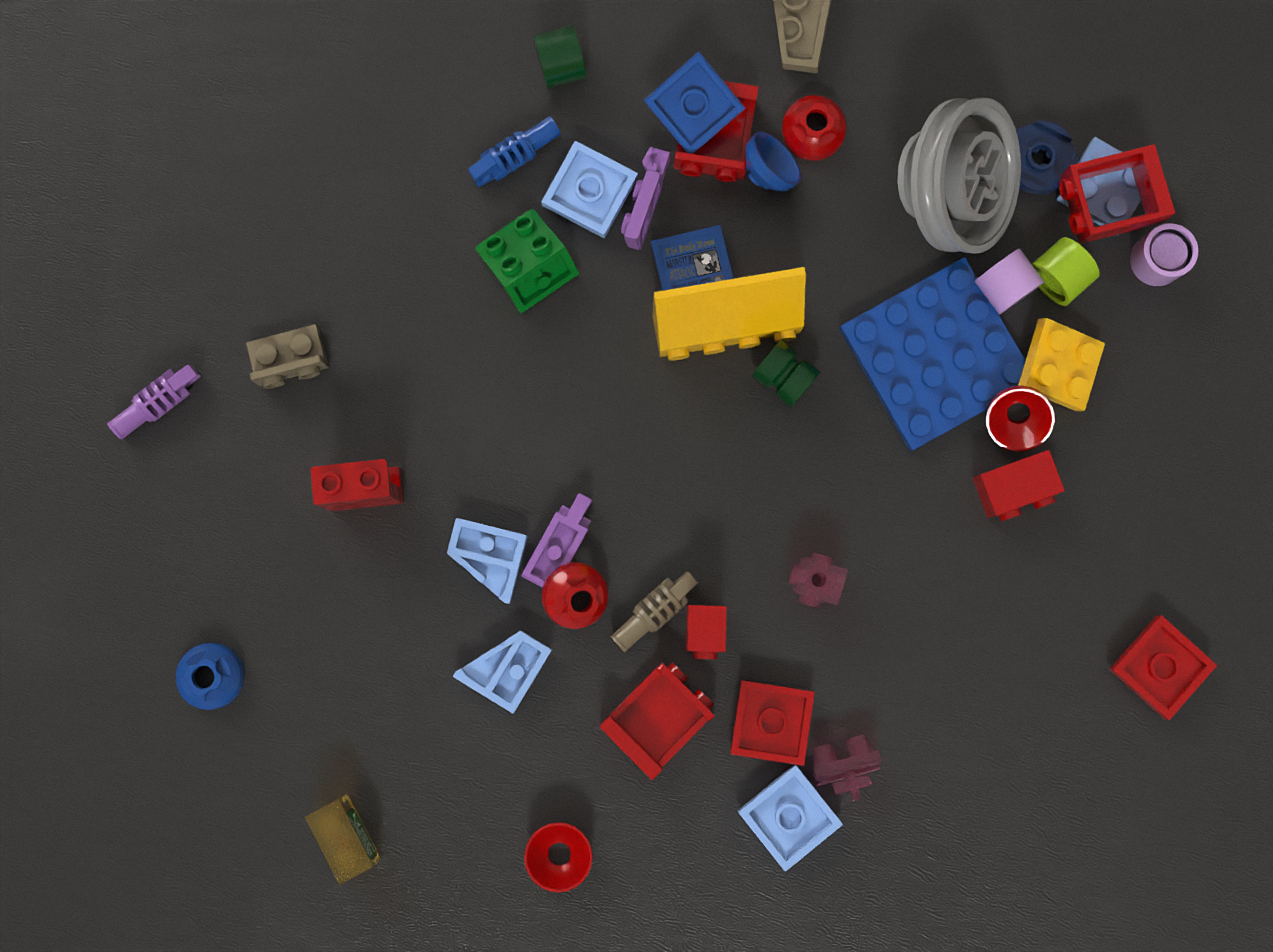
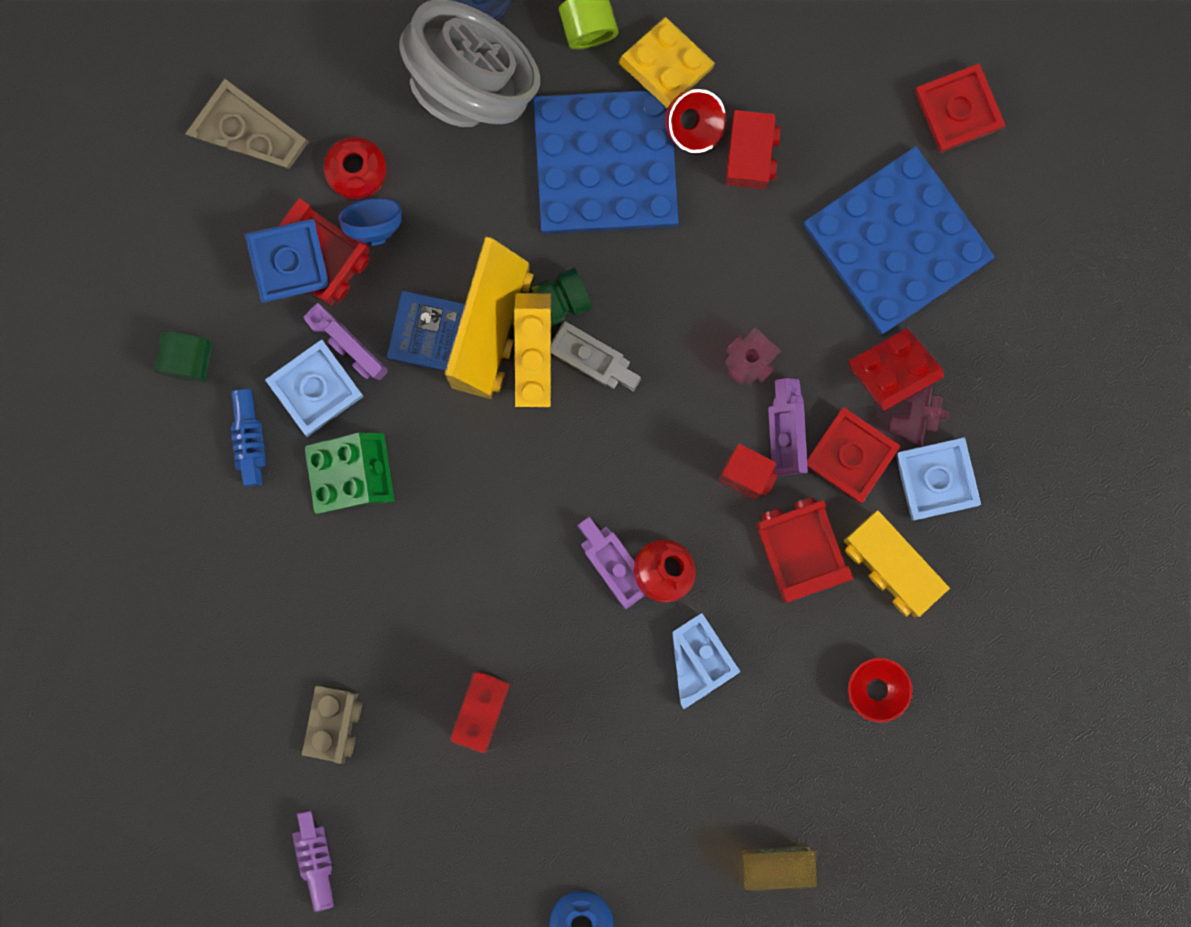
camera: 70 degrees left, 0 degrees up
(489, 555) = (593, 629): light blue wing -> none
(655, 610) = (709, 508): dark tan hinge -> none
(685, 815) = (895, 565): none -> yellow brick
(722, 369) = (532, 350): none -> yellow brick
(744, 430) = (592, 357): none -> light grey hinge
(767, 648) = (788, 429): none -> medium lavender hinge
(876, 725) = (895, 369): none -> red plate
(1003, 669) = (898, 240): none -> blue plate
(1009, 281) = (574, 70): lavender piece -> none

